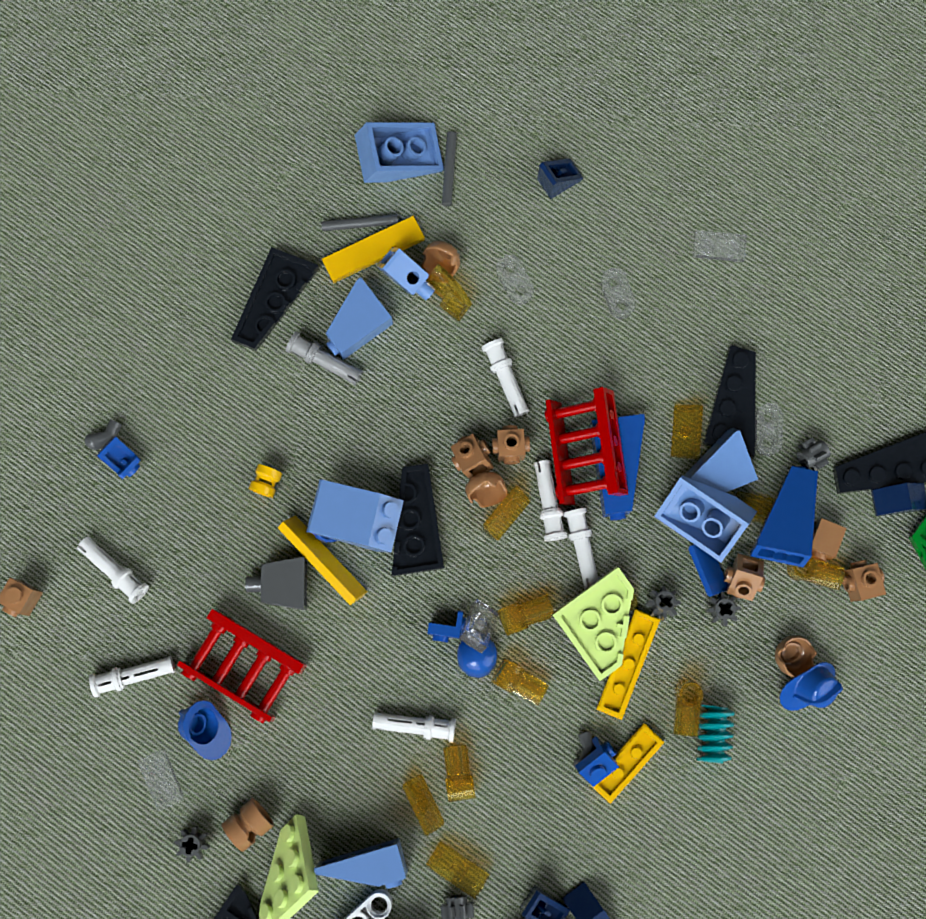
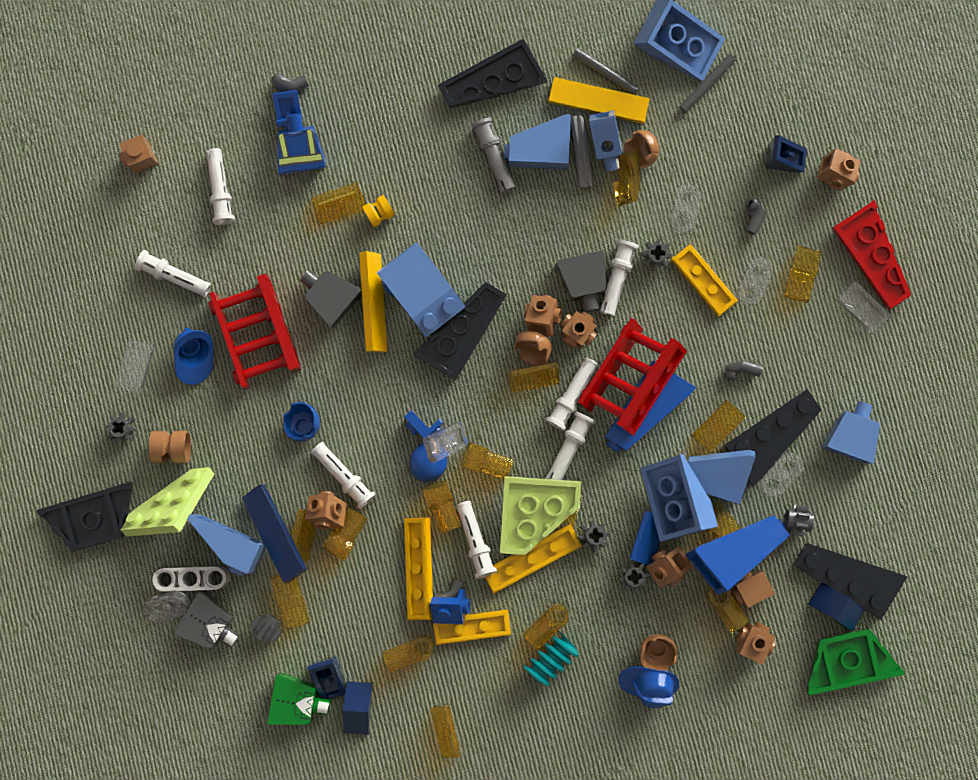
camera: 45 degrees right, 5 degrees up
(155, 481) = (299, 147): none -> blue torso
(225, 501) = (338, 202): none -> clear yellow slope
(343, 709) = (301, 422): none -> blue hair
(393, 301) = (581, 152): none -> light grey axle
(399, 824) = (274, 533): none -> dark blue tile
(426, 768) = (325, 511): none -> medium nougat brick
(480, 400) = (584, 278): none -> dark grey torso
(523, 327) = (662, 250): none -> dark grey gear
(543, 751) = (418, 568): none -> yellow tile
(574, 240) = (756, 213): none -> dark grey arm
(577, 325) = (704, 280): none -> yellow tile
(584, 695) = (478, 550): none -> white pin
(592, 832) = (406, 653): none -> clear yellow piece
(609, 153) = (838, 169): none -> medium nougat brick
(649, 258) = (802, 274): none -> clear yellow slope
(664, 369) = (743, 366): none -> dark grey arm
(679, 870) = (446, 731): none -> clear yellow slope
(691, 198) = (869, 247): none -> red wing
(798, 351) = (854, 435): none -> medium blue torso

